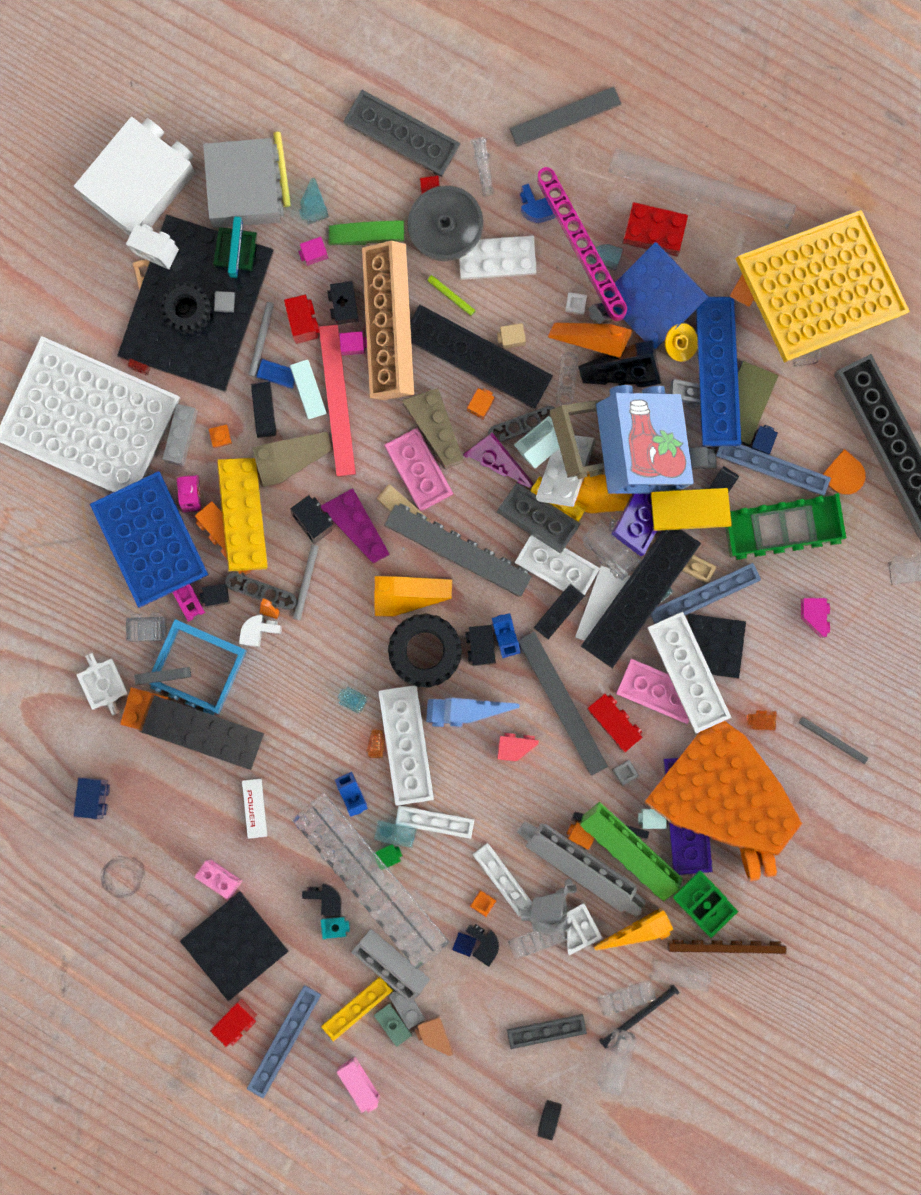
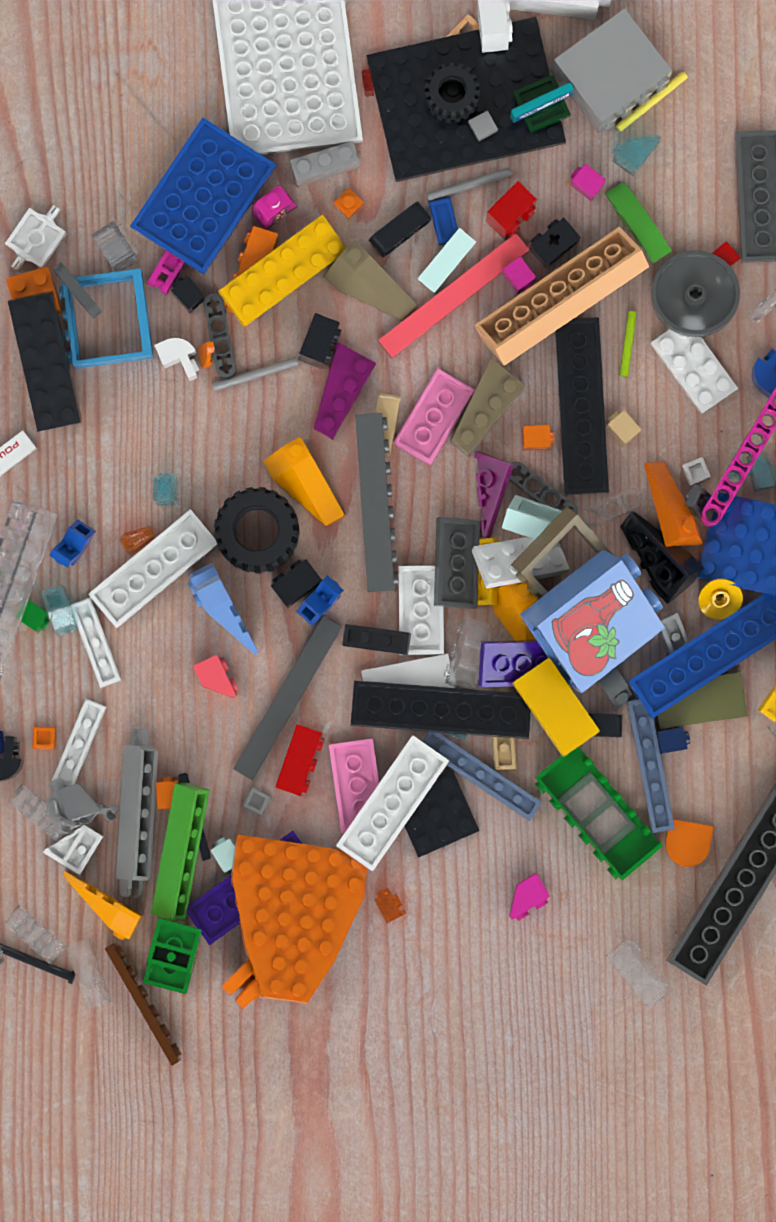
camera: 60 degrees right, 0 degrees up
(833, 740) = (413, 989): dark grey bar -> none

